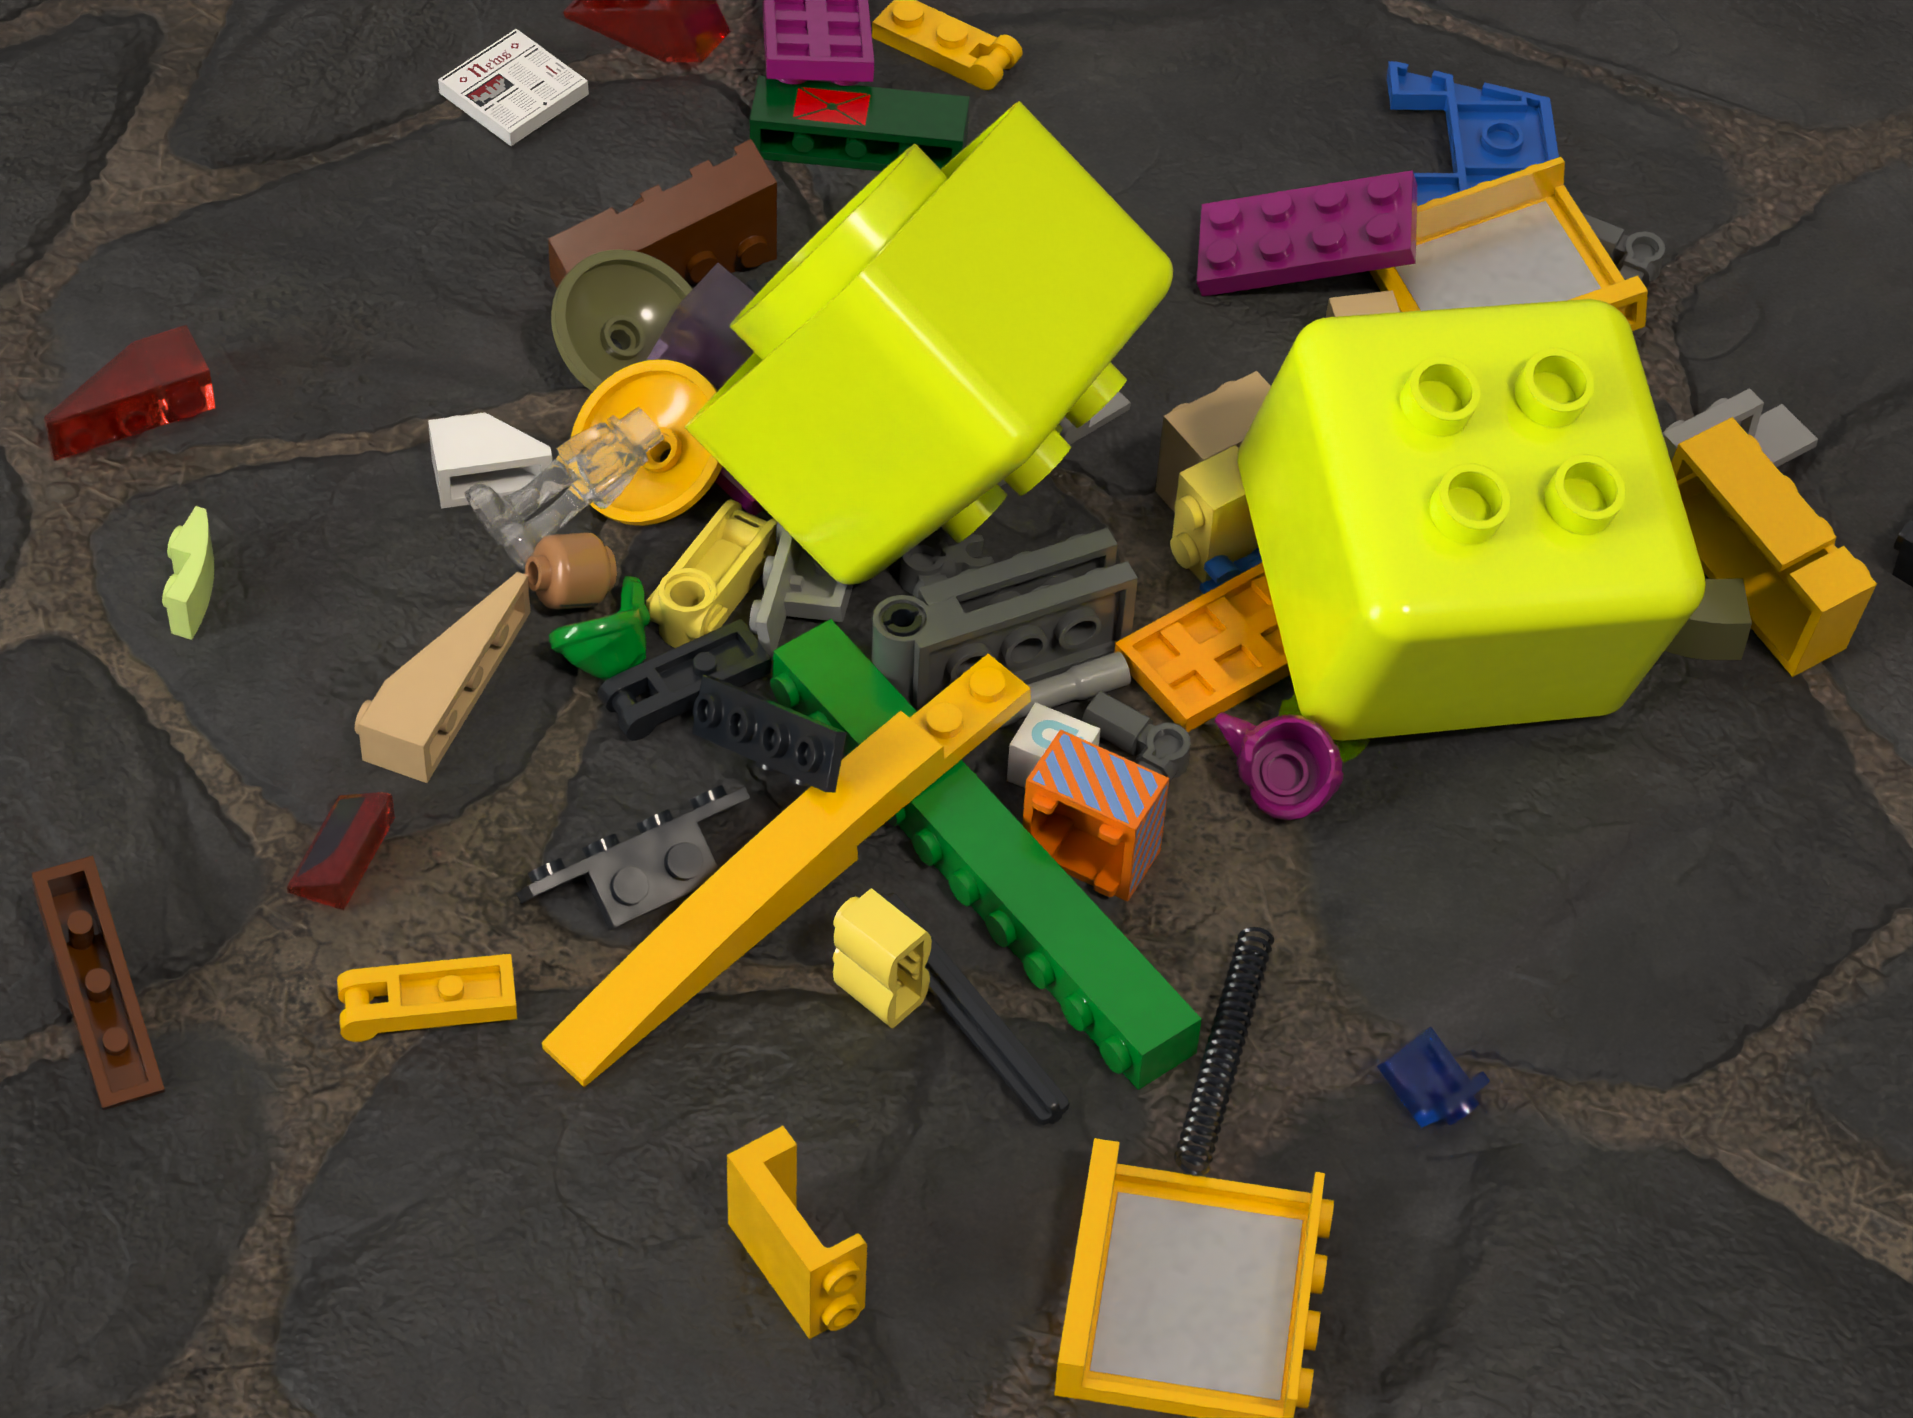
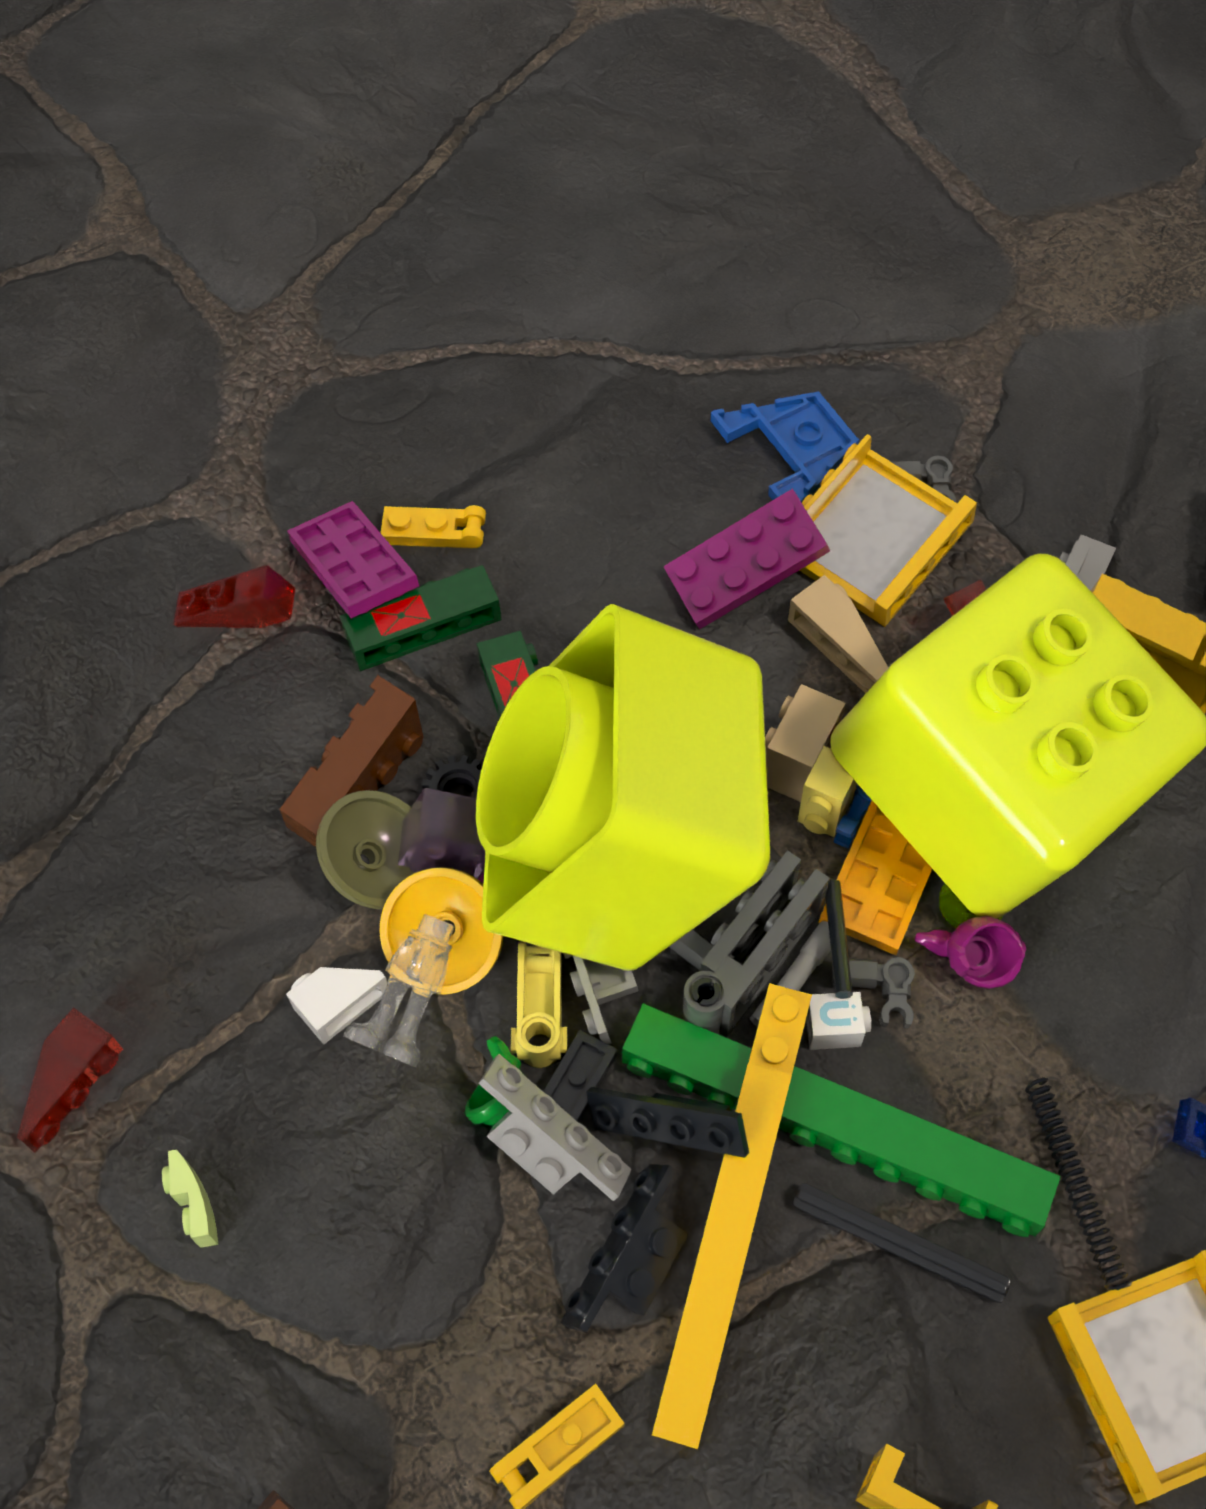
camera: 25 degrees left, 10 degrees up
(343, 848) = (425, 1359): clear red slope -> none
(434, 692) = (414, 1210): tan slope -> none
(513, 87) = (176, 697): white tile -> none
(571, 570) = (449, 1056): medium nougat head -> none
(622, 692) = (546, 1137): none -> light grey bracket
(881, 957) = (838, 1248): light yellow brick -> none
(1096, 814) = (900, 1059): orange container -> none
(1114, 664) = (838, 940): none -> black bar

